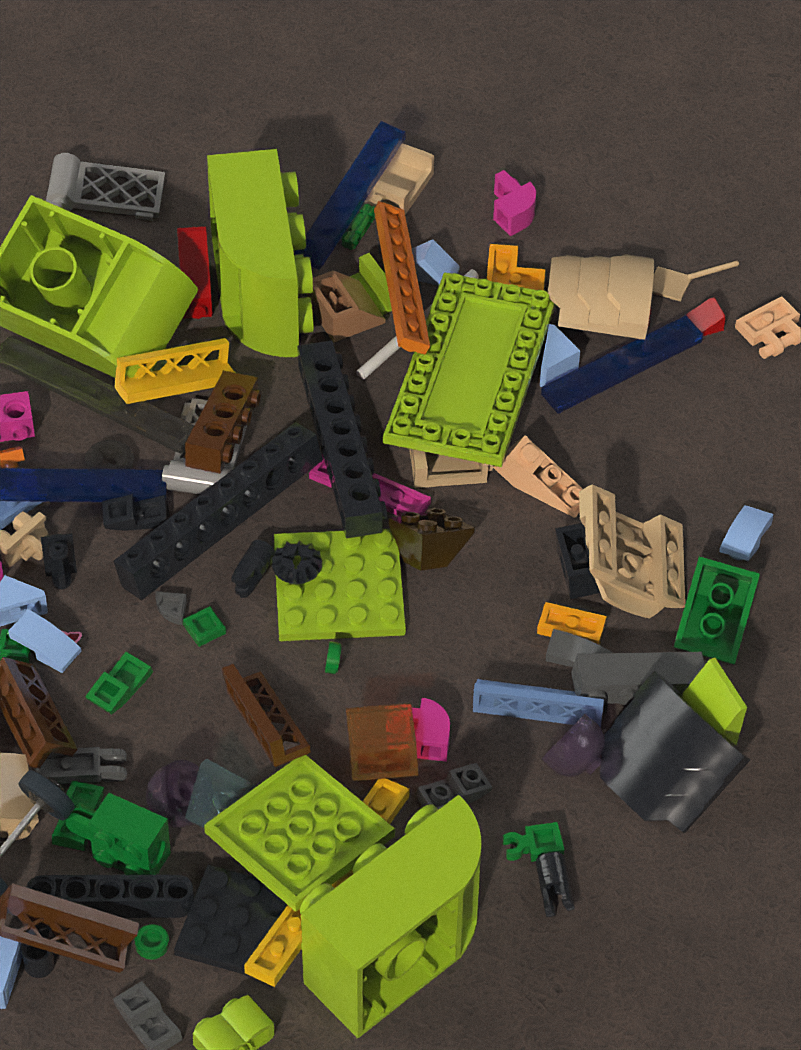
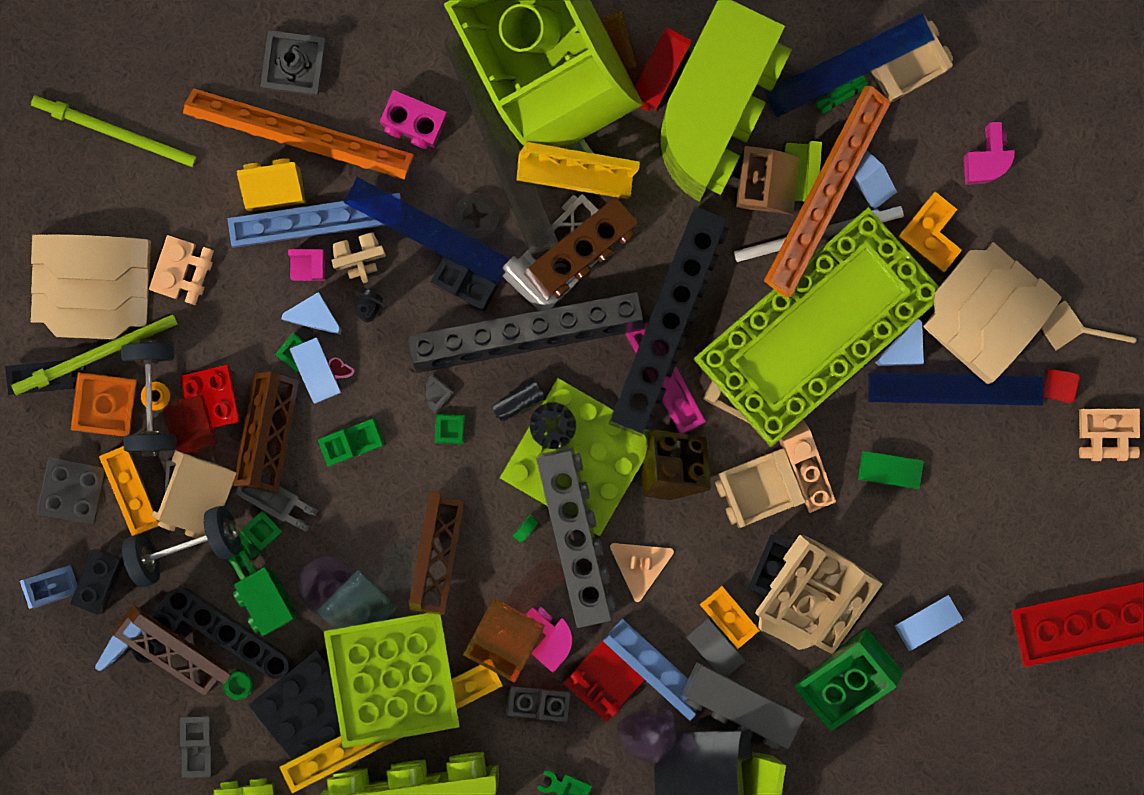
camera: 30 degrees right, 35 degrees up
(436, 686) = (585, 610): none -> dark grey brick
(459, 636) = (640, 565): none -> light nougat piece
(500, 739) = (604, 681): none -> red hinge
(520, 516) = (759, 488): none -> tan panel
(613, 447) = (890, 470): none -> green slope

